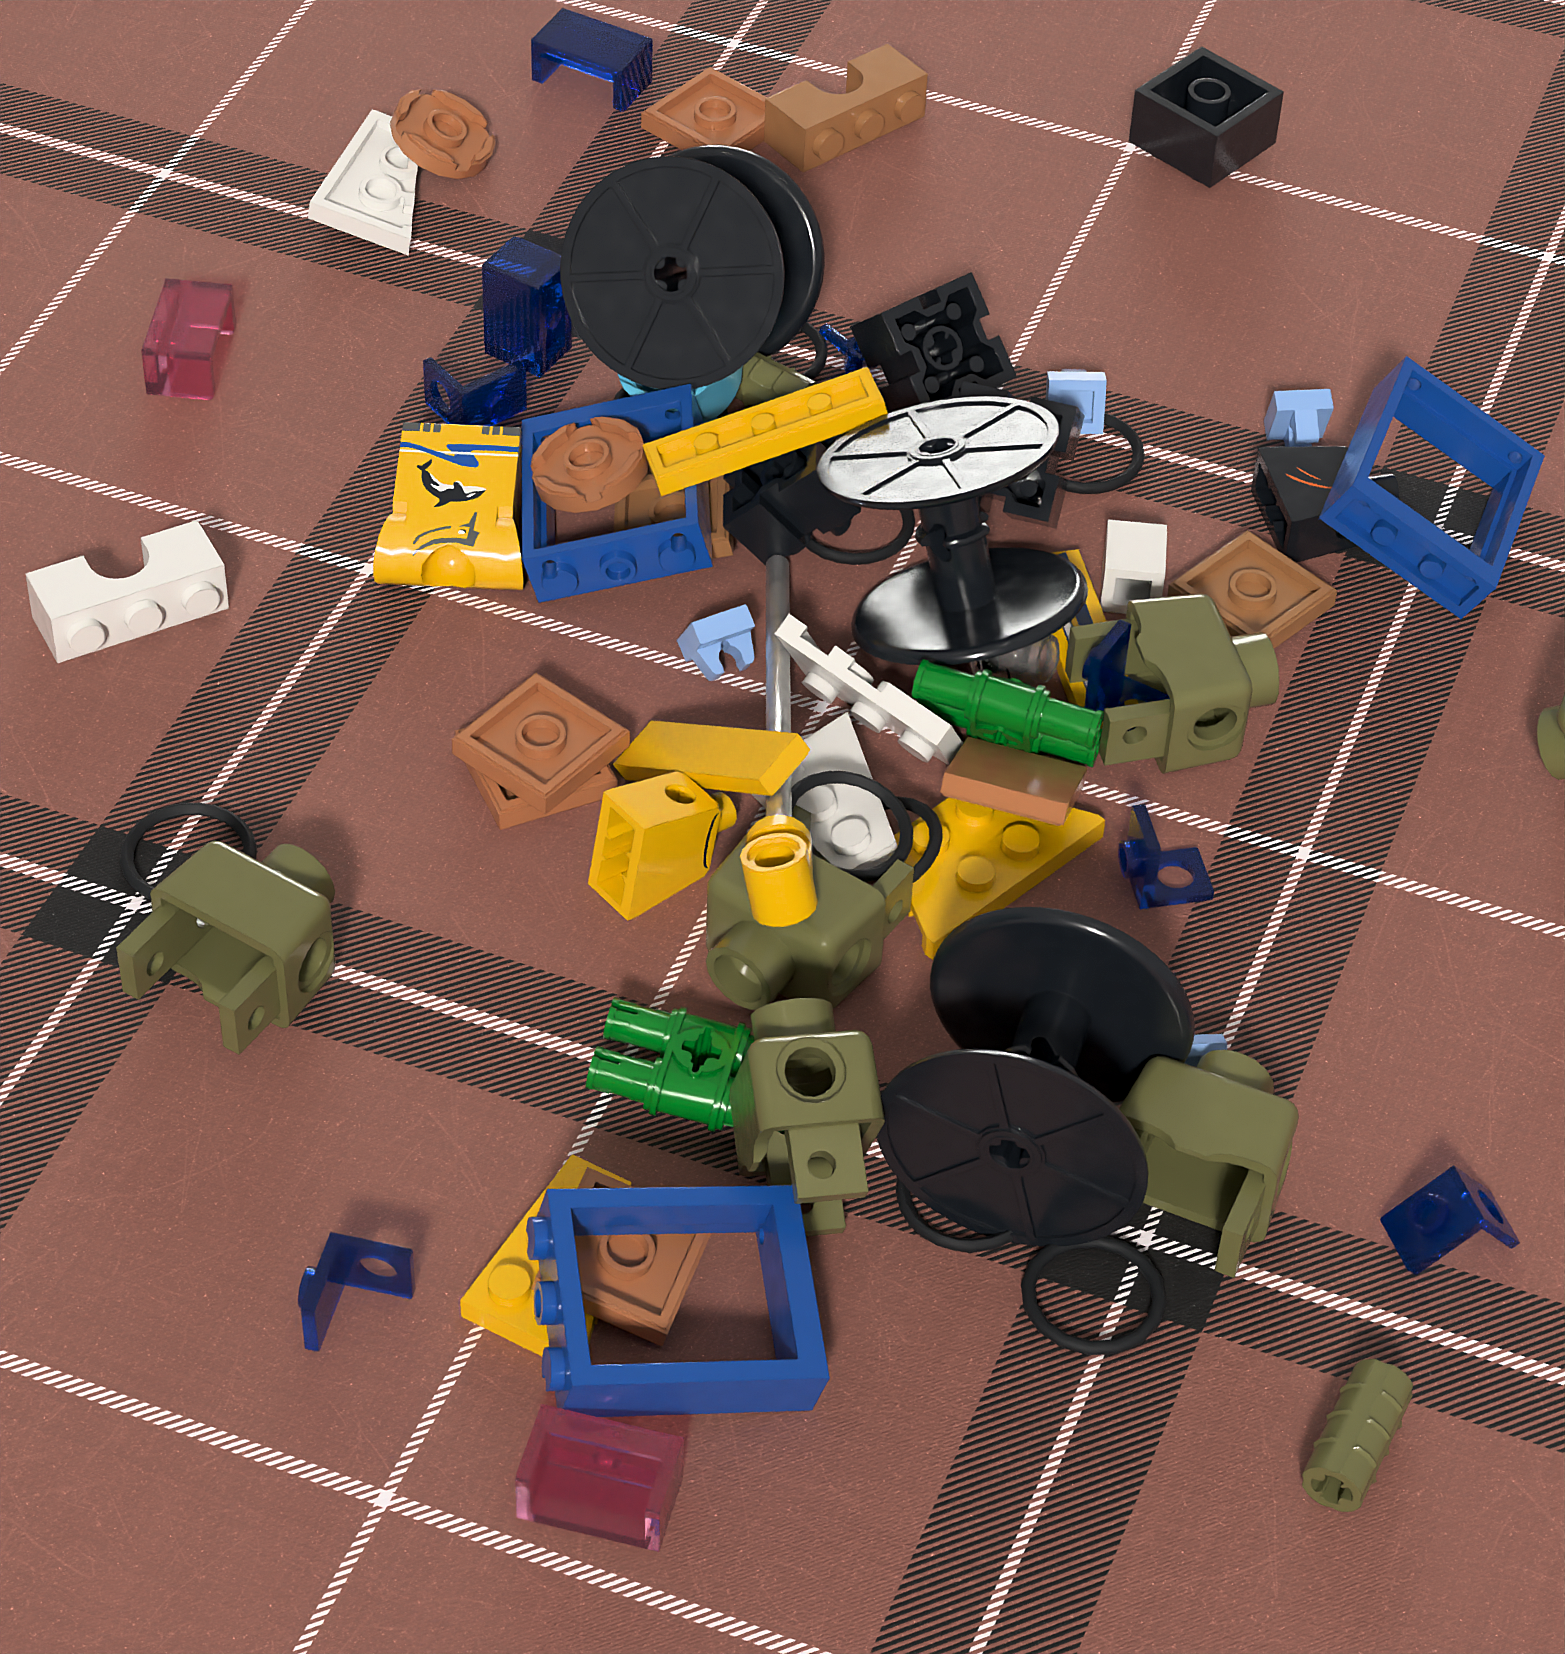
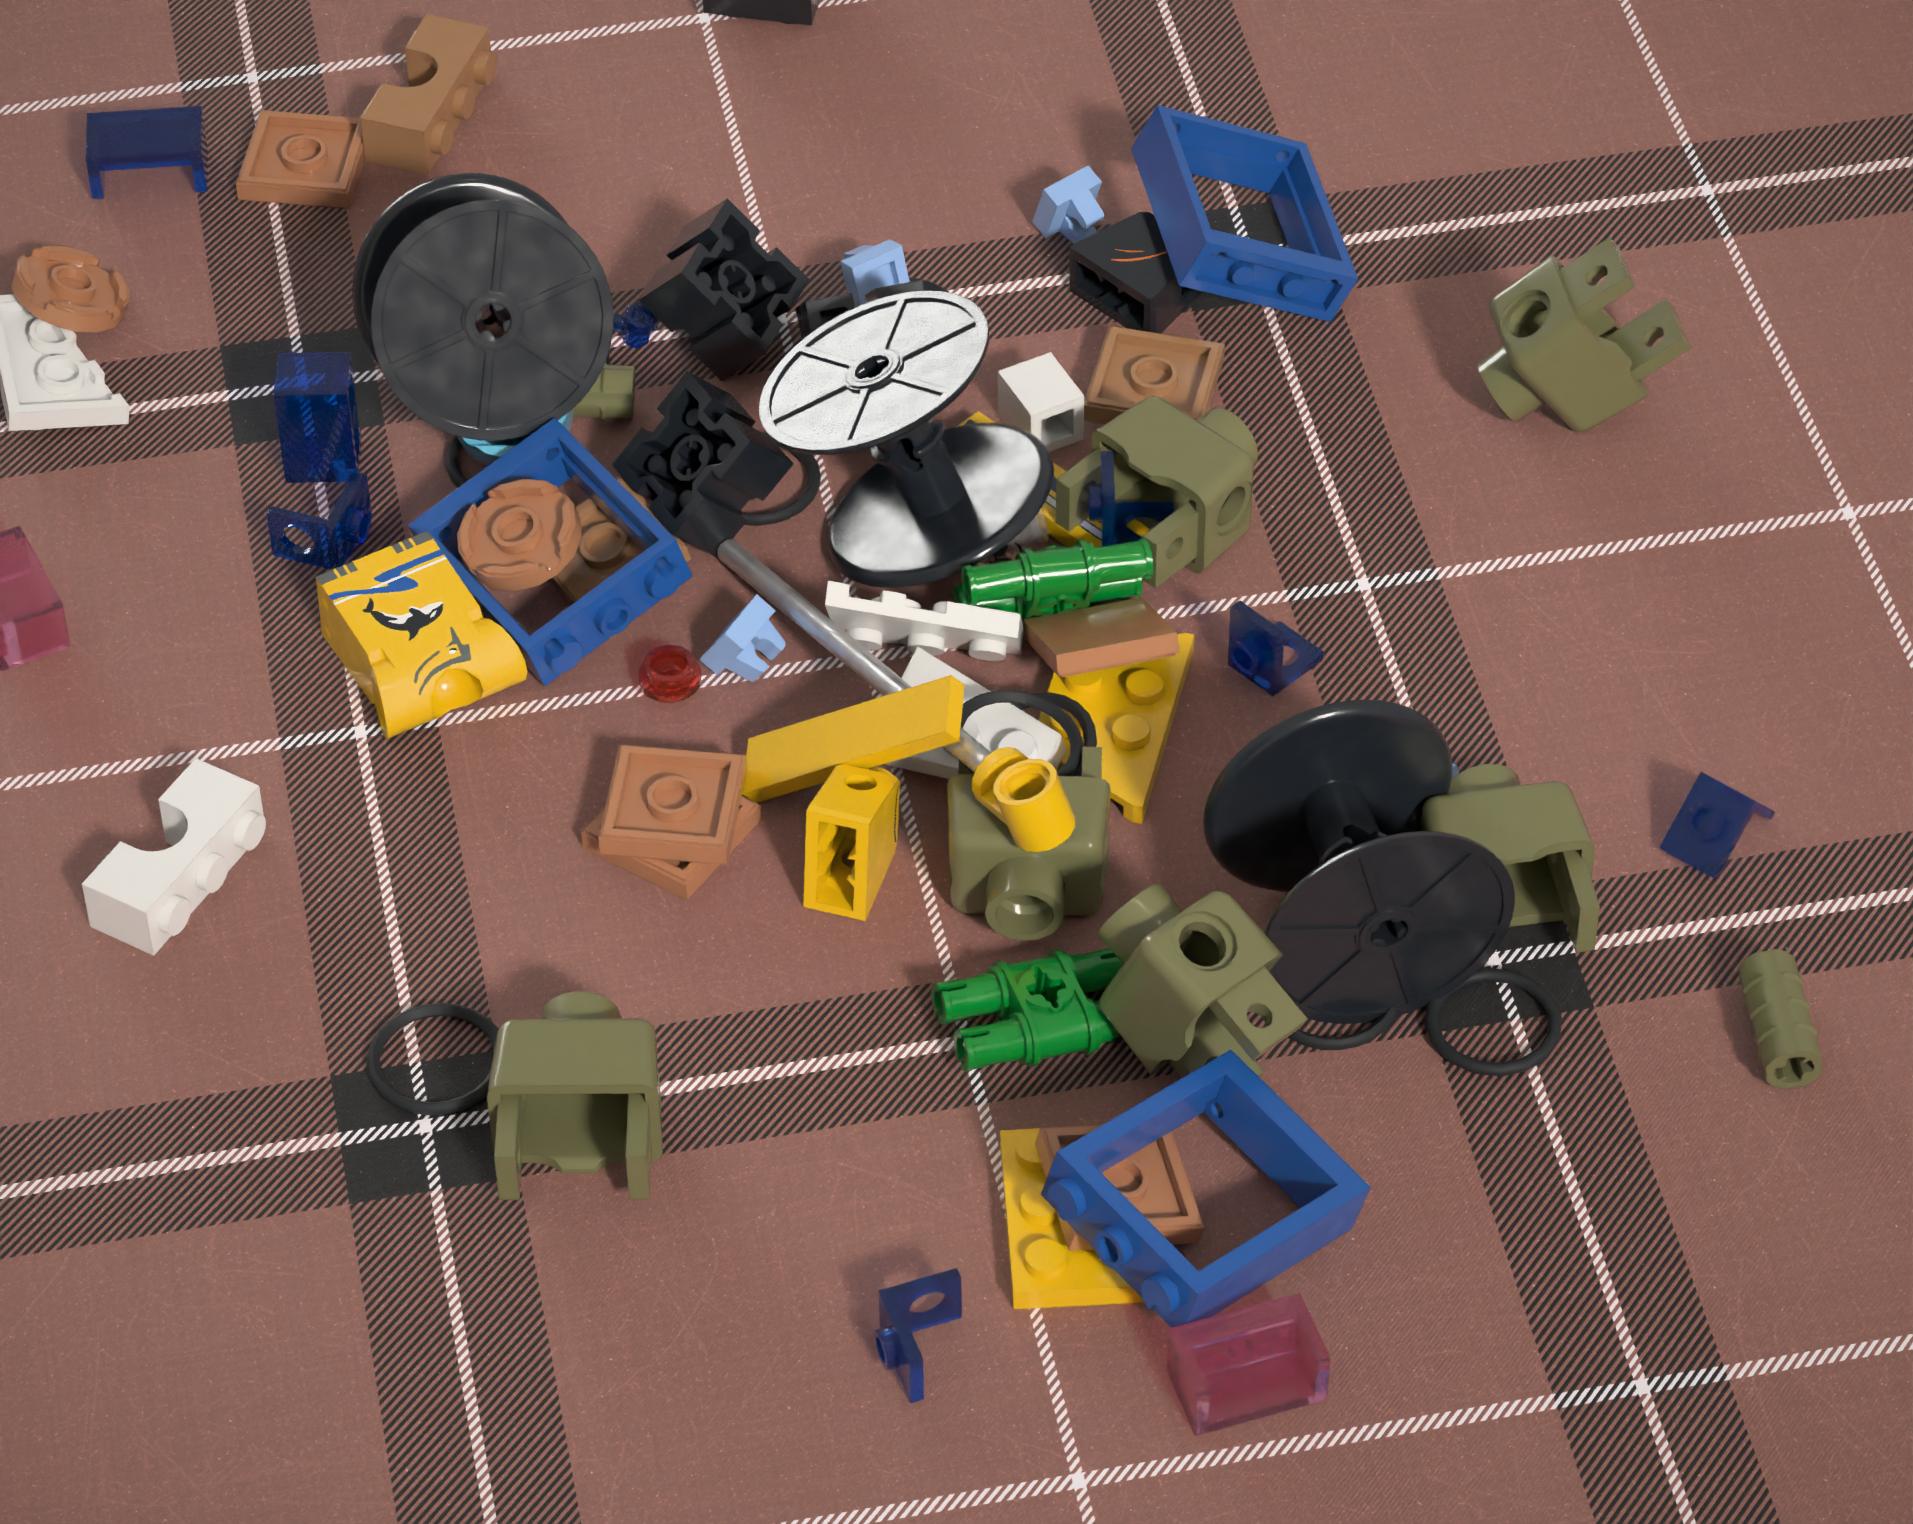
camera: 30 degrees left, 0 degrees up
(639, 639) = (669, 674): none -> clear red plate
(764, 431) = (674, 429): yellow tile -> none

